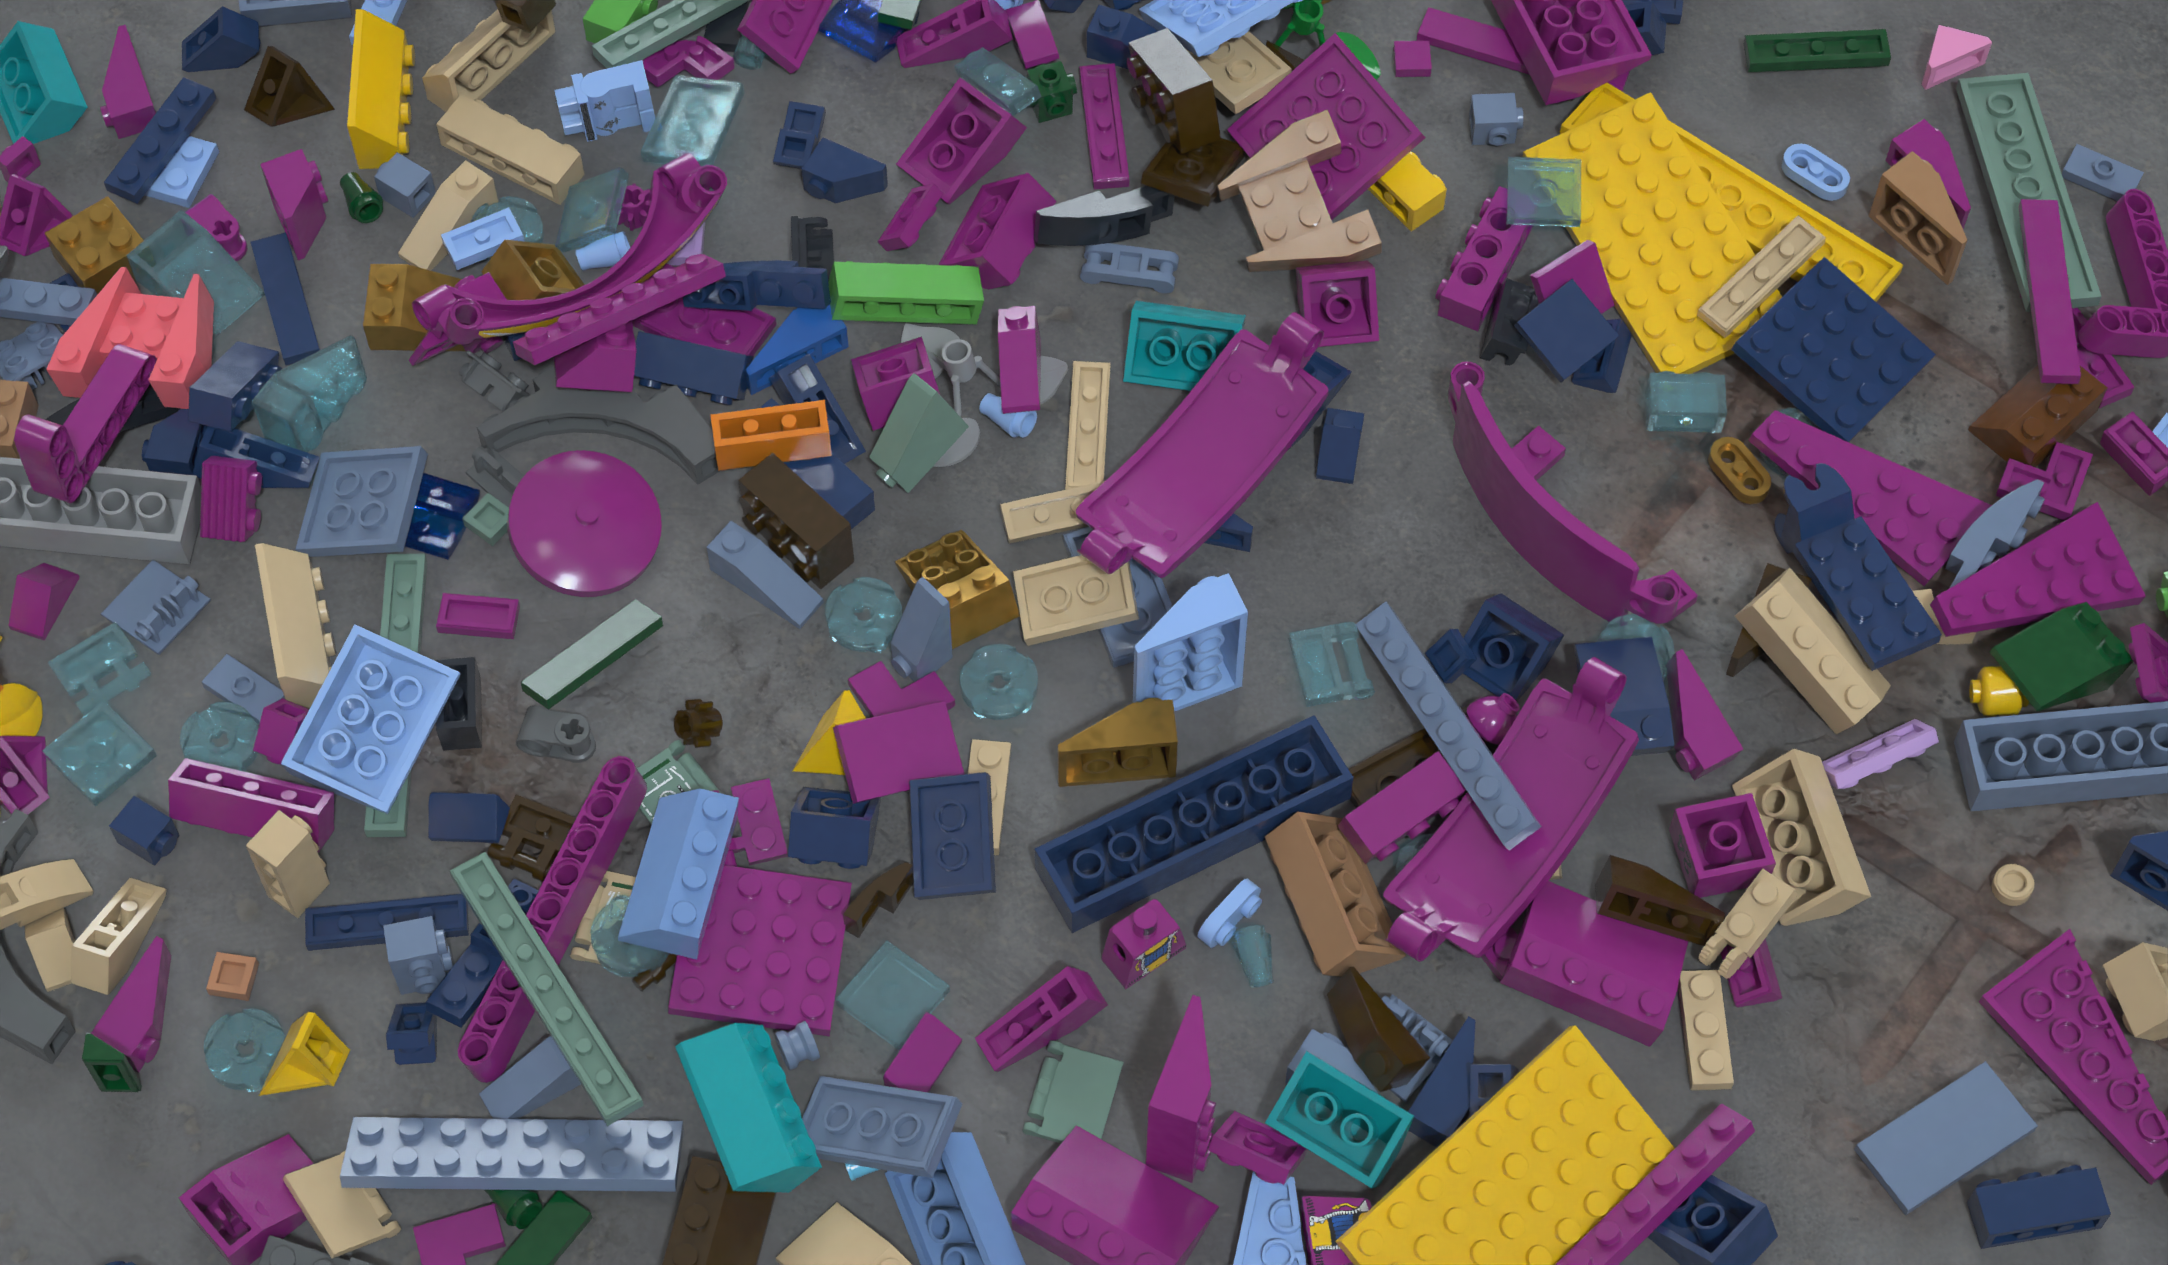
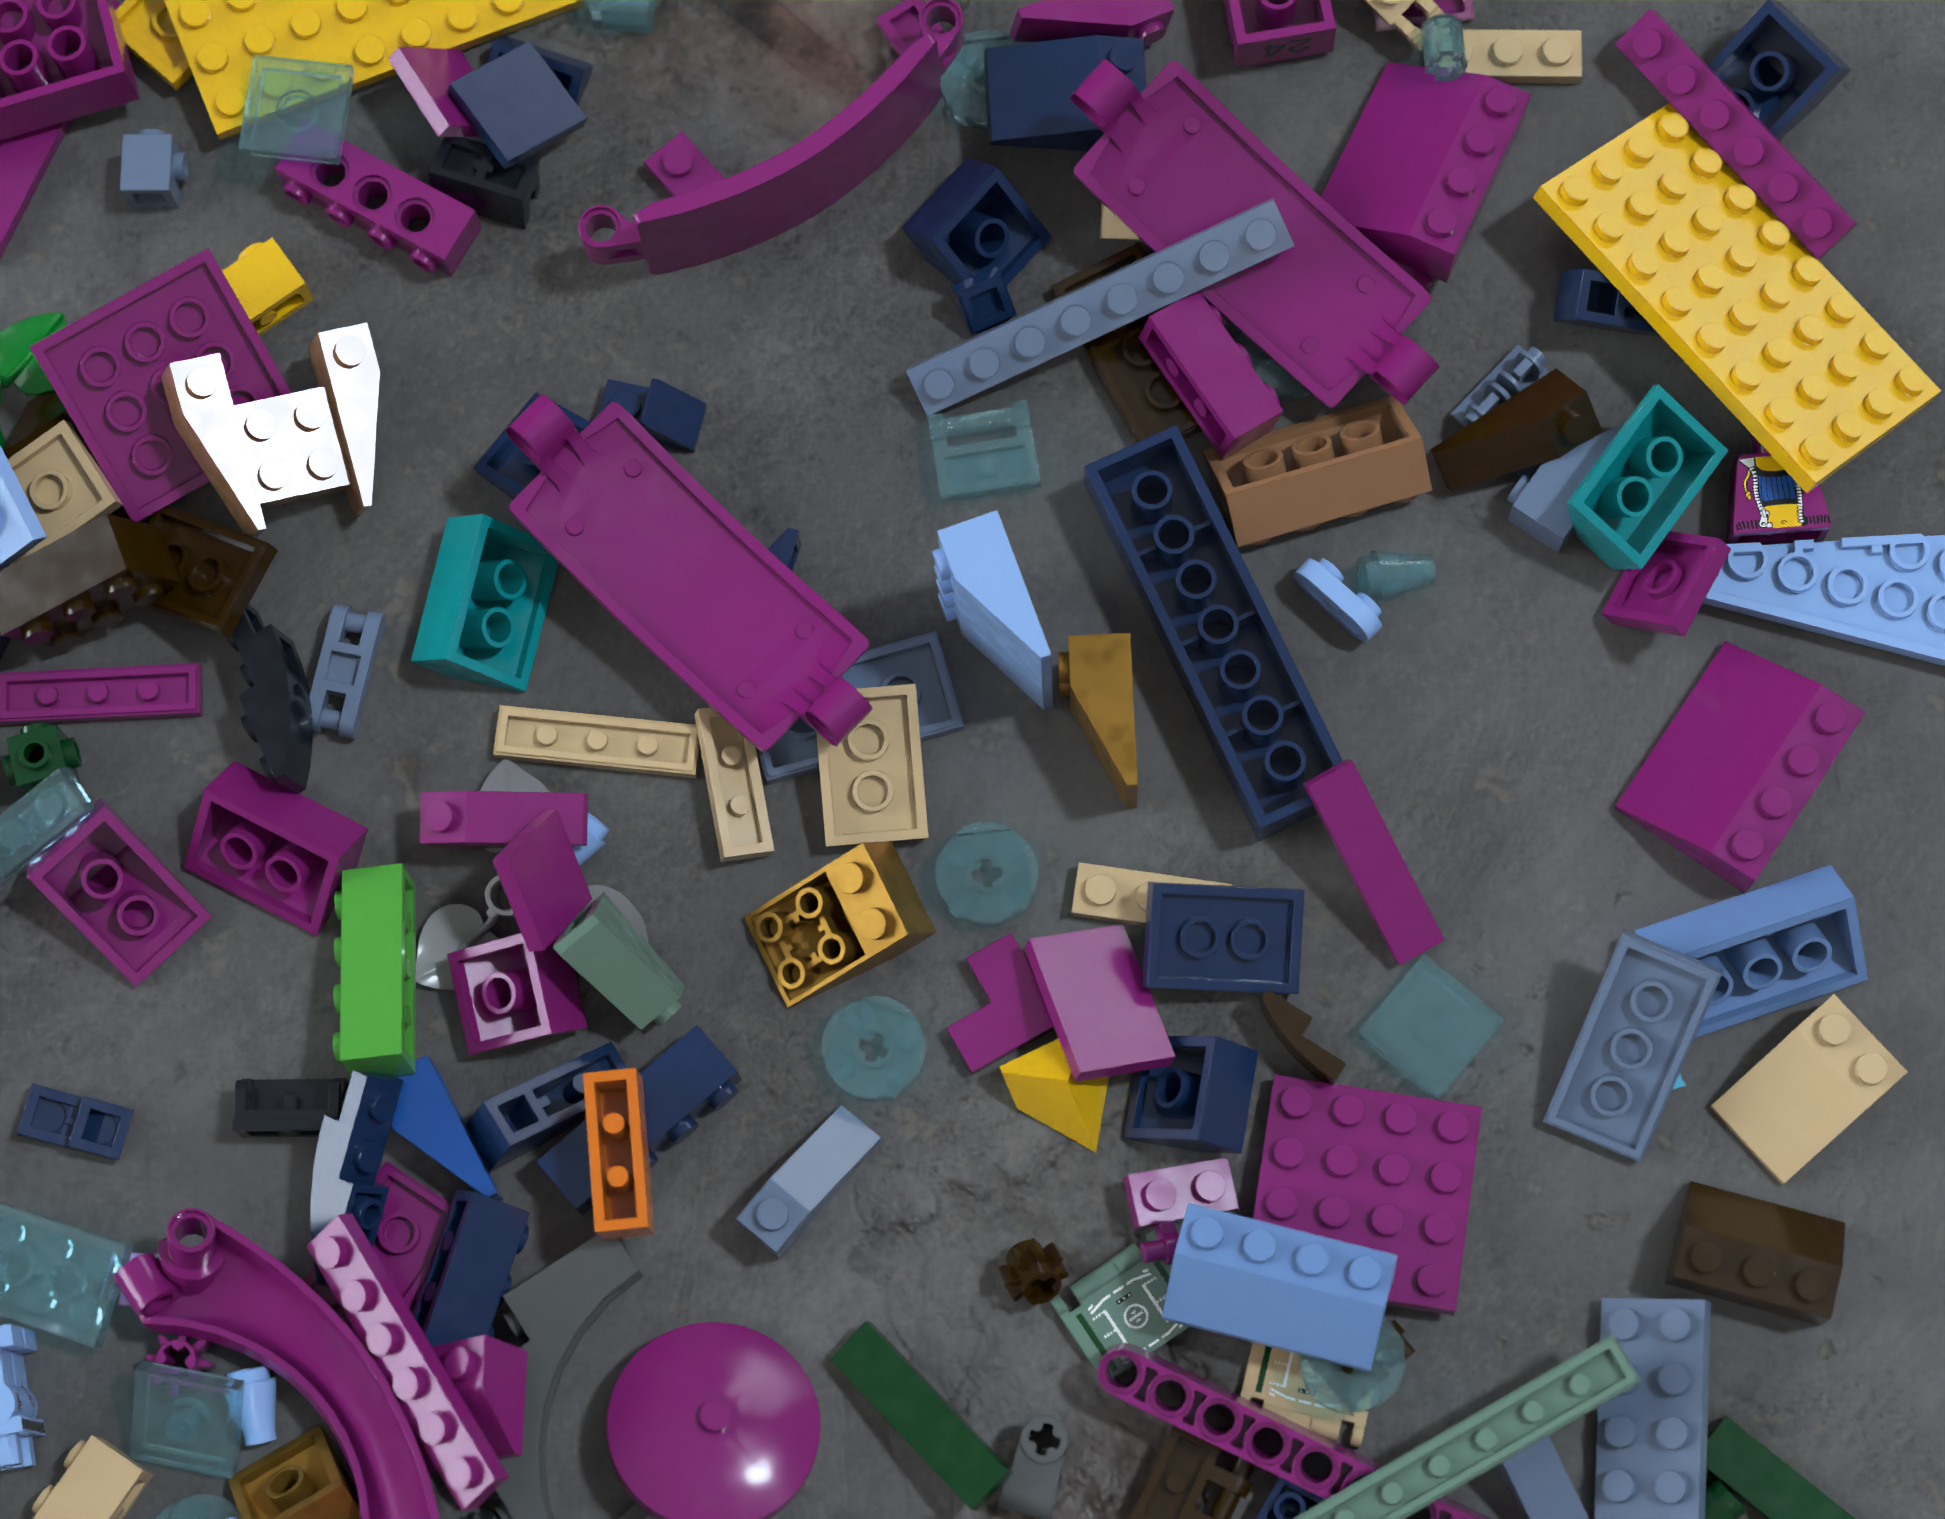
camera: 80 degrees left, 15 degrees up
(749, 1109) = (1604, 1205): teal slope -> none
(796, 521) = (740, 1131): dark brown brick -> none
(797, 1045) = (1504, 1148): sand blue wheel -> none
(842, 173) = (152, 1061): dark blue slope -> none
(910, 217) = (237, 966): magenta plate -> none
(923, 634) = (934, 964): sand blue slope -> none
(923, 1056) = (1523, 993): magenta slope -> none
(969, 373) = (542, 880): none -> magenta tile
(1015, 936) = (1373, 861): none -> magenta tile
(1042, 1017) = (1477, 839): magenta slope -> none
(1072, 1093) = (1570, 808): sand green piece -> none
(1147, 939) = (1381, 706): magenta torso -> none
(1181, 1103) = (1624, 651): magenta slope -> none
(1340, 301) = (433, 398): magenta slope -> none
(1412, 58) = (31, 271): magenta tile -> none
(1446, 1095) = (1594, 356): dark blue slope -> none
(1493, 716) = (1081, 254): magenta brick -> none
(1654, 902) = (1343, 96): dark brown slope -> none
(1695, 963) = (1444, 47): none -> clear light blue piece

